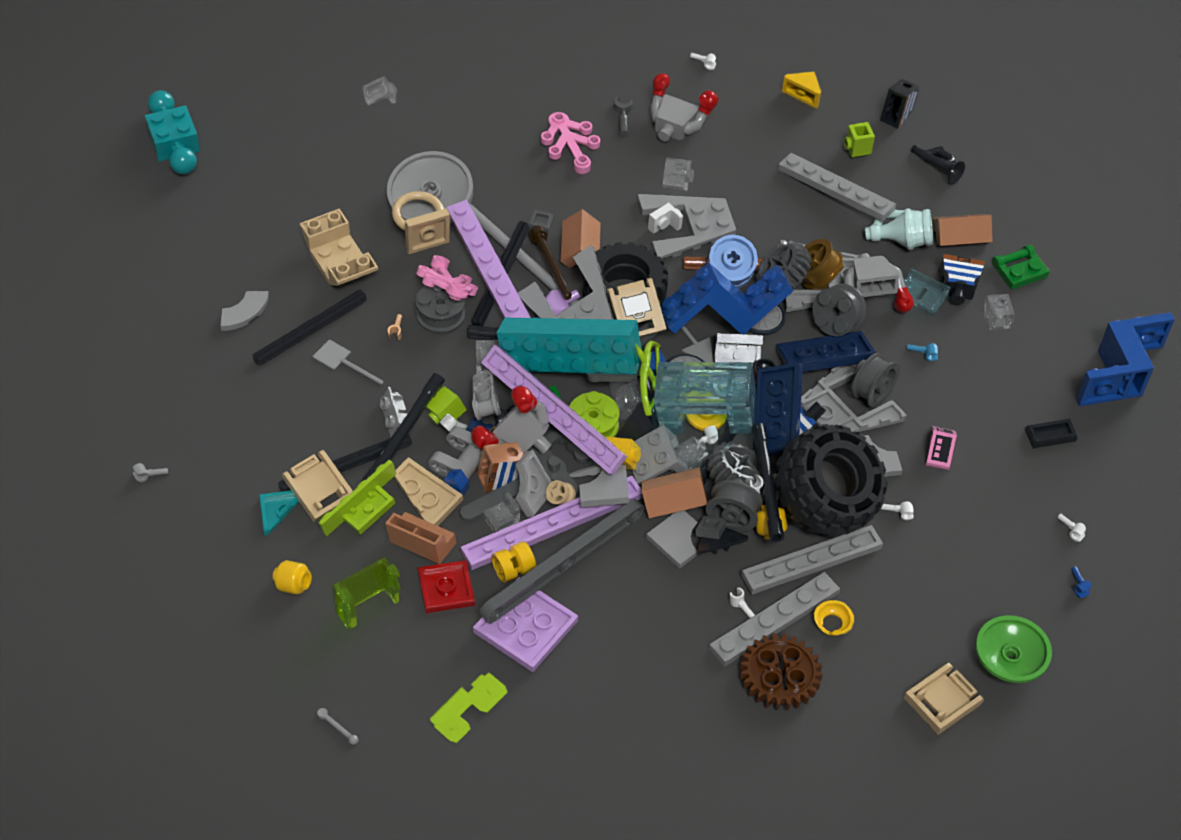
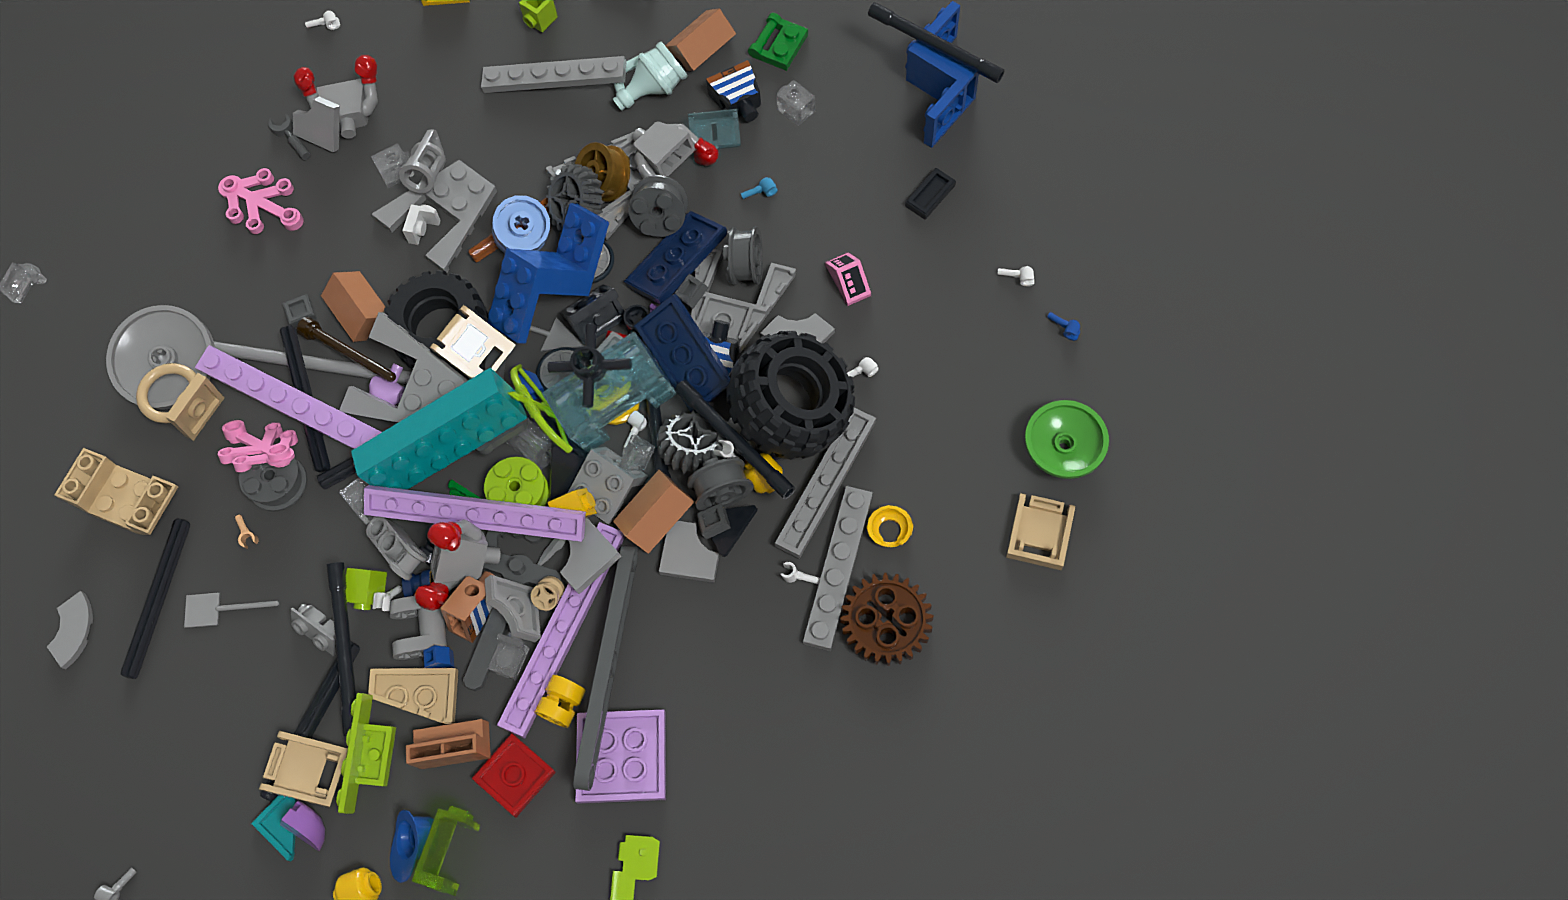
camera: 30 degrees left, 15 degrees up
(291, 517) = (305, 824): none -> medium lavender brick
(352, 565) = (408, 843): none -> blue piece
(648, 117) = (319, 124): none -> light grey tile
(703, 361) = (581, 357): none -> black bar
(704, 182) = (427, 158): none -> light grey piece
(817, 378) = (691, 291): none -> dark grey tile
(1154, 365) = (980, 65): none -> black piece

